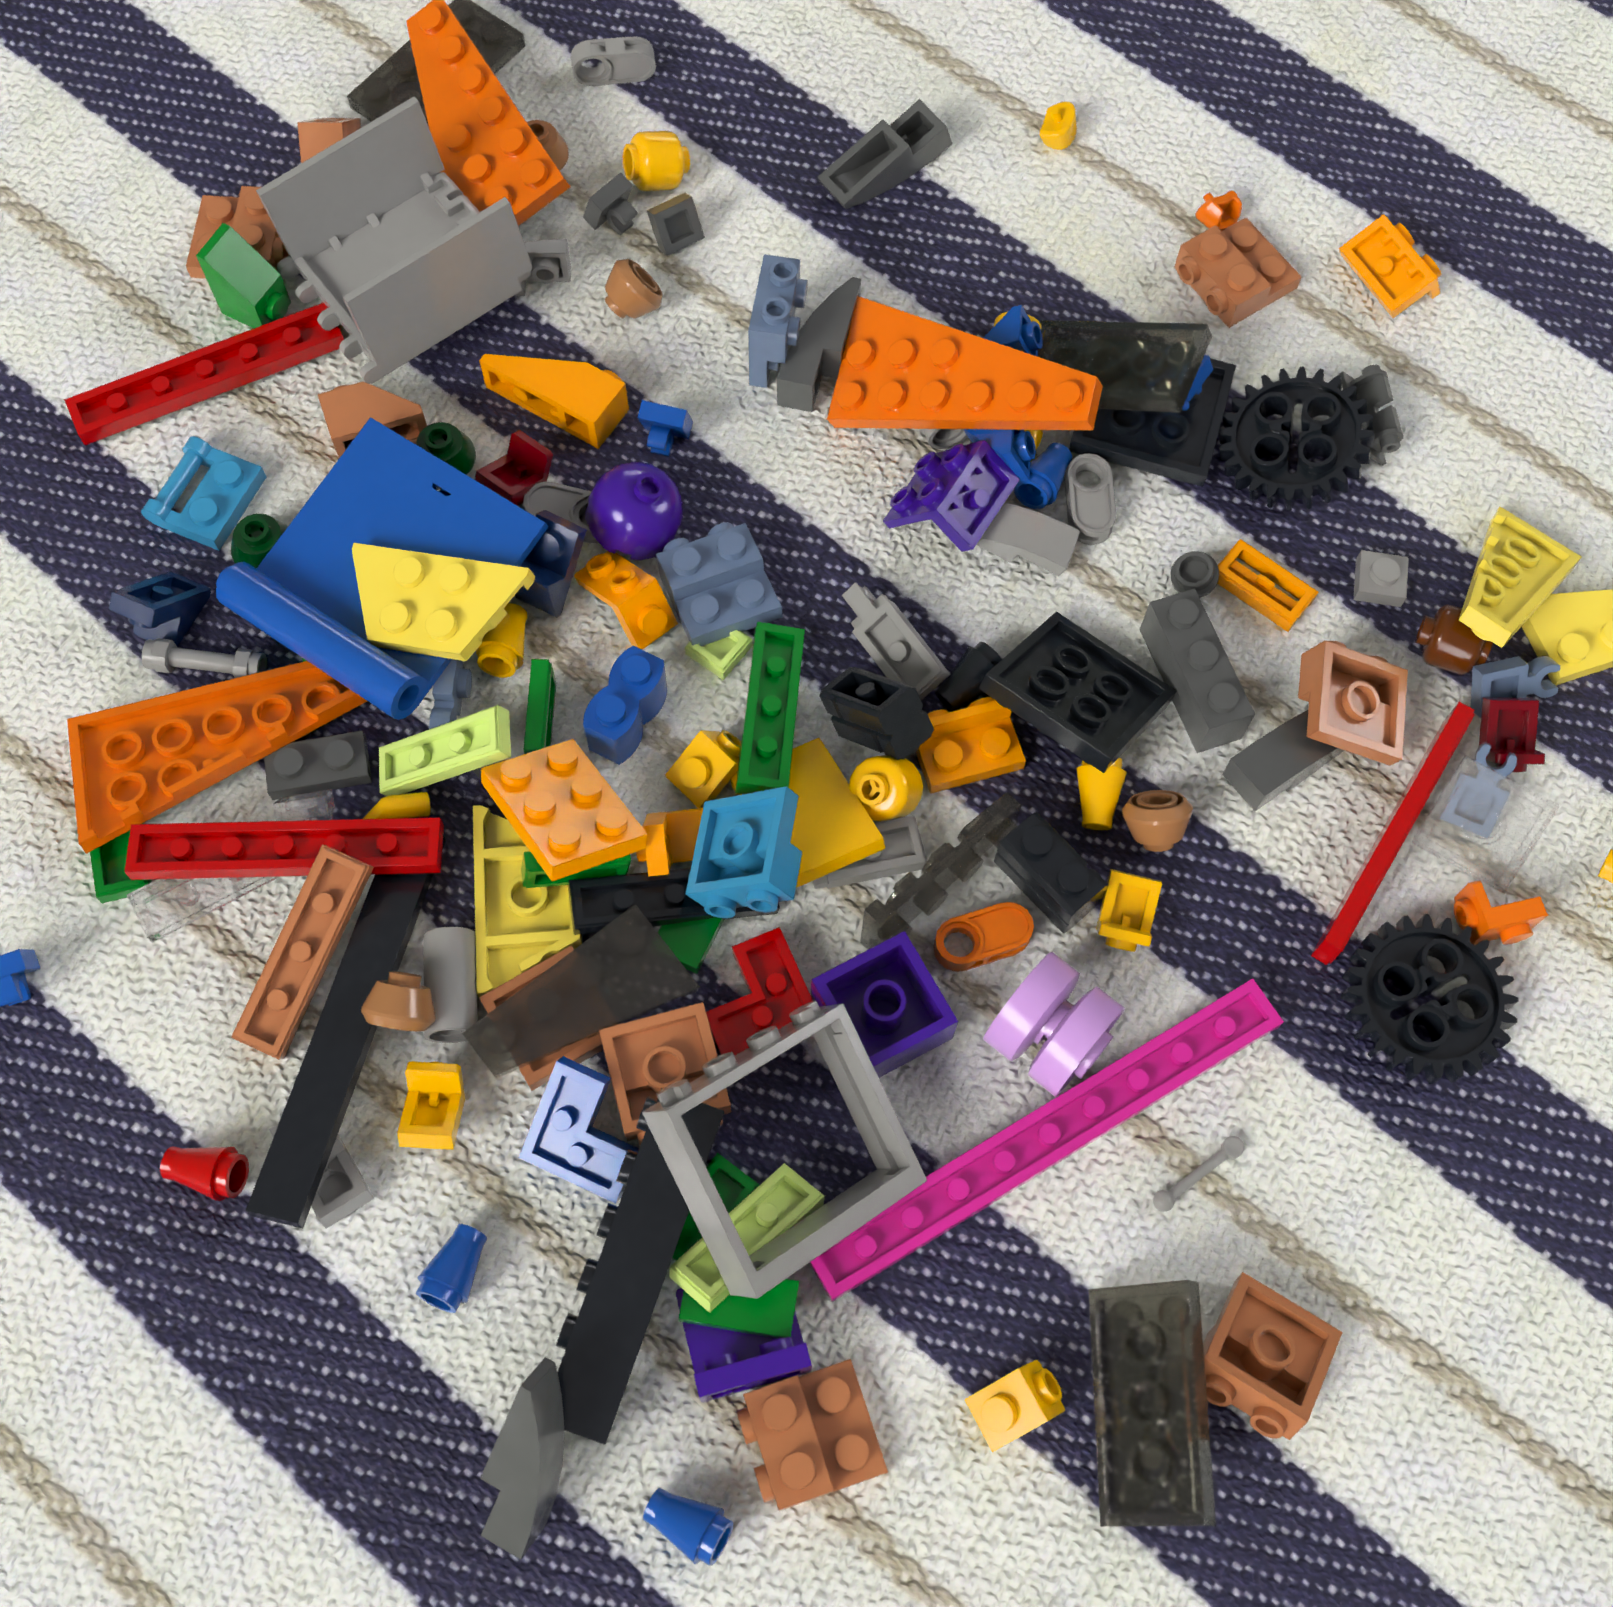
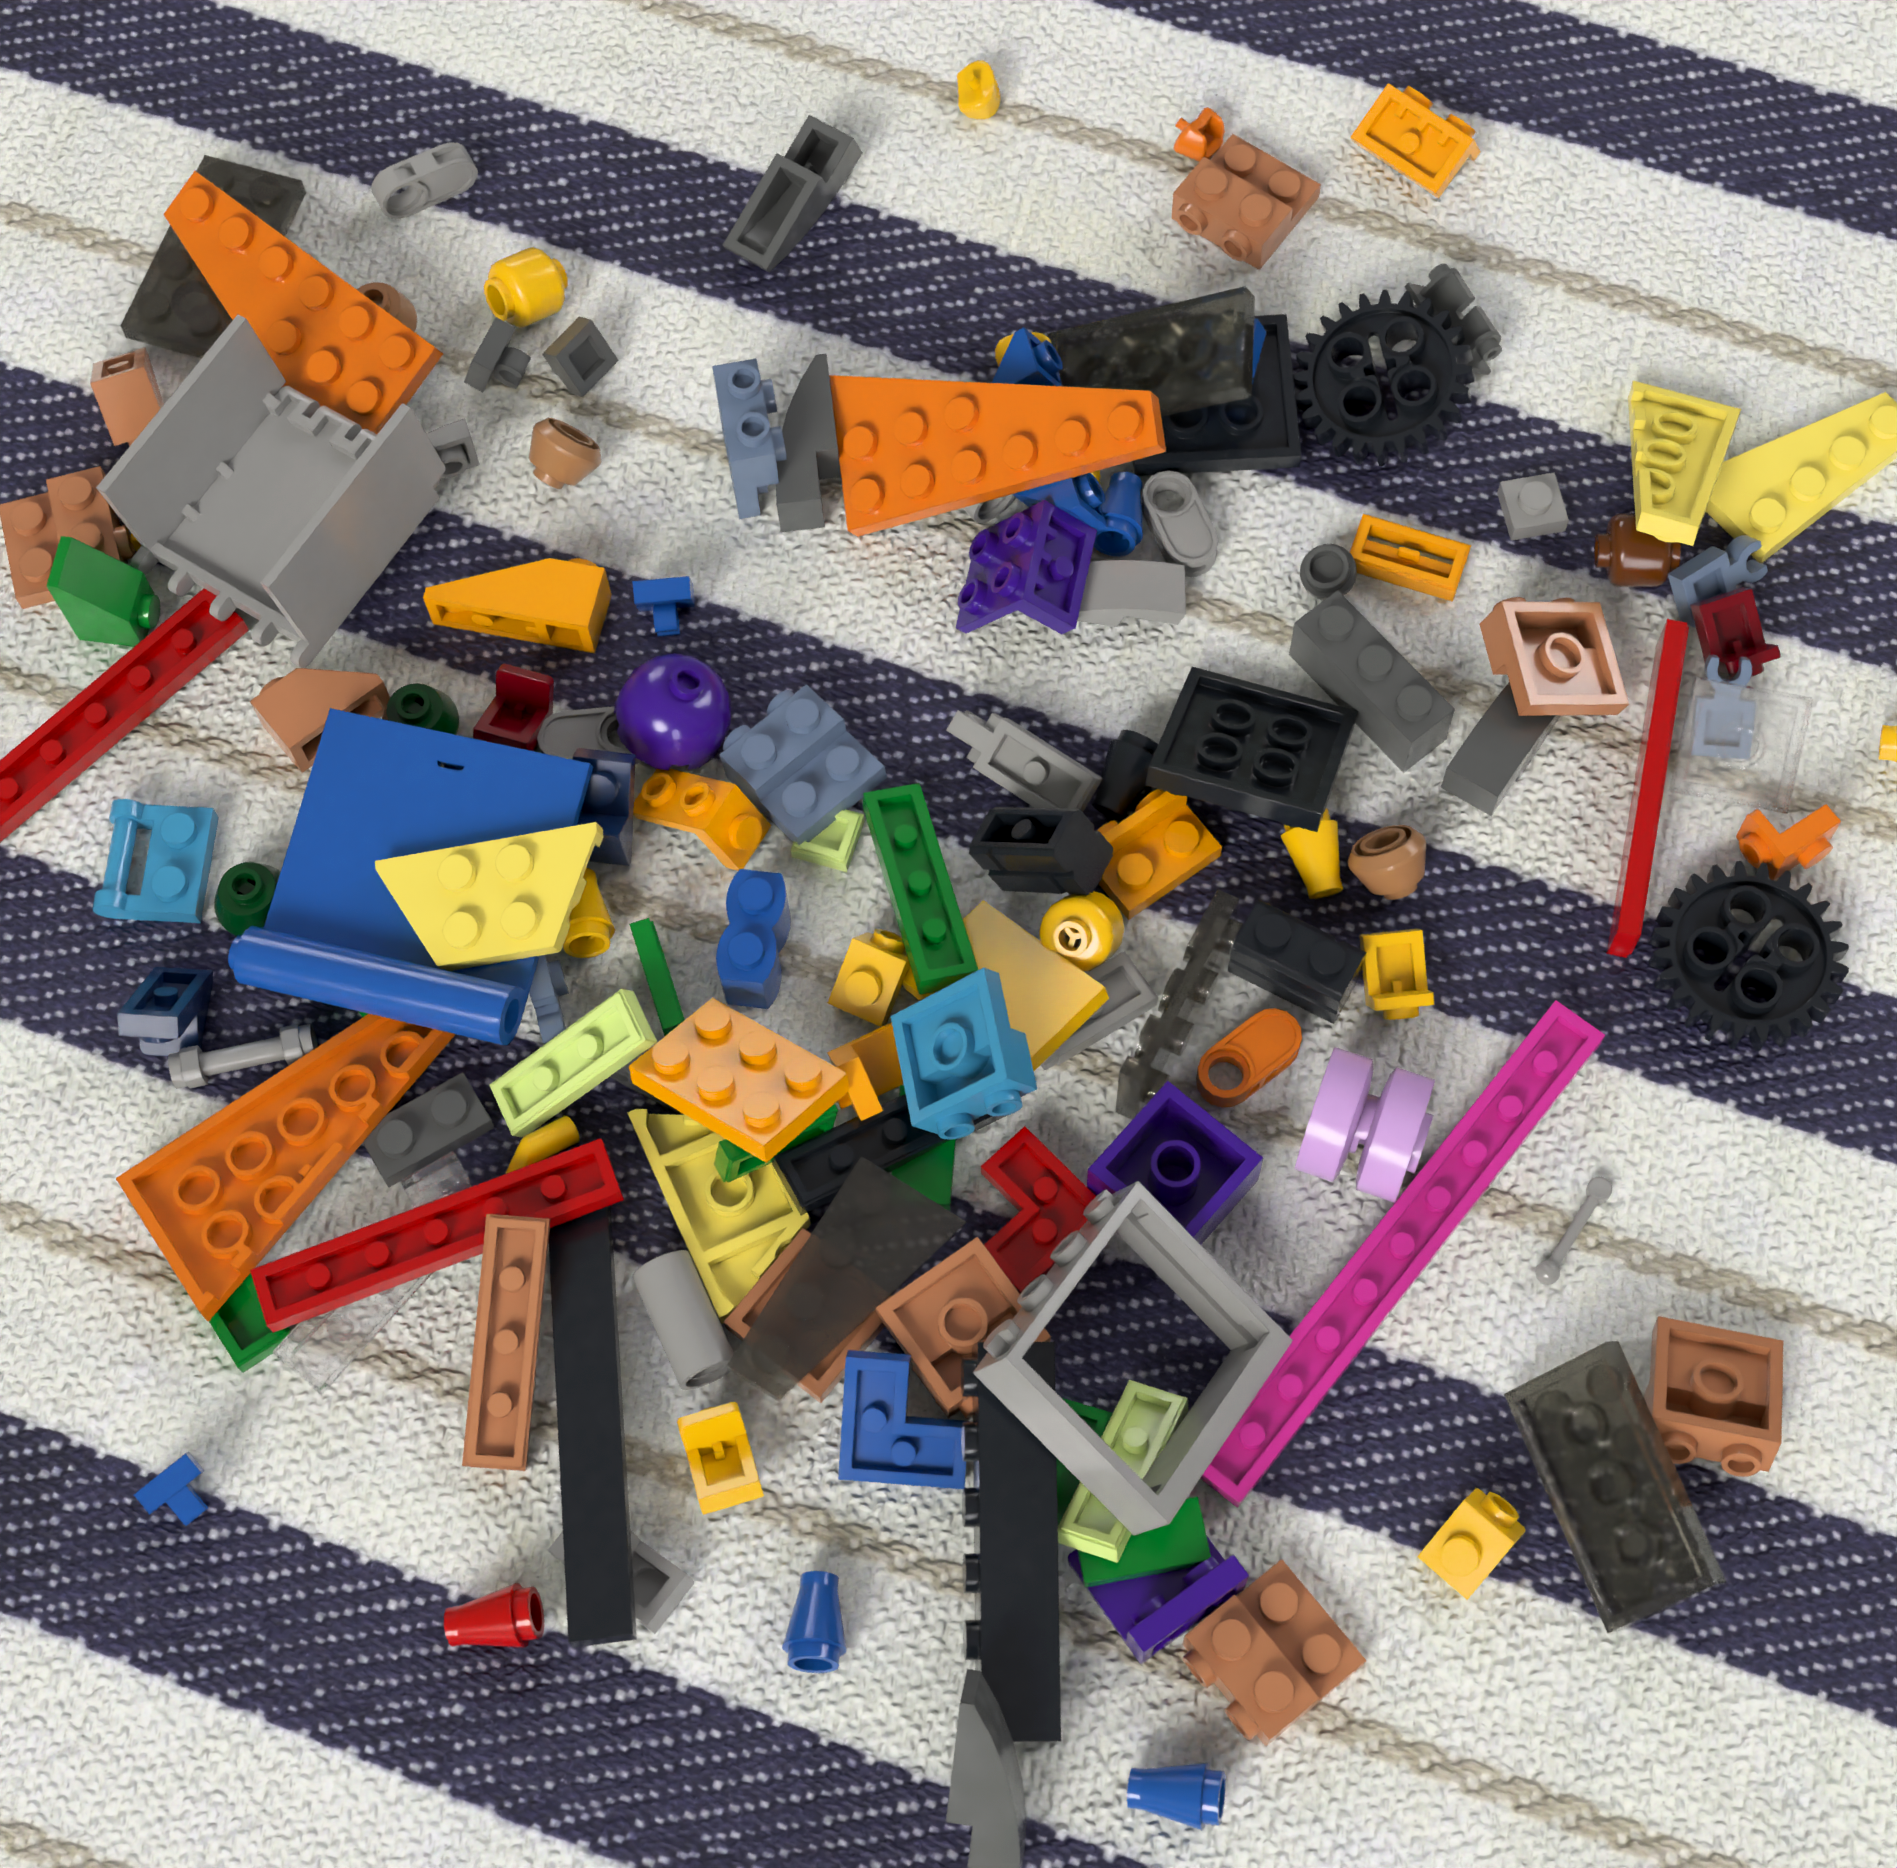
camera: 15 degrees left, 0 degrees up
(400, 1003) = (644, 1357): medium nougat cone -> none

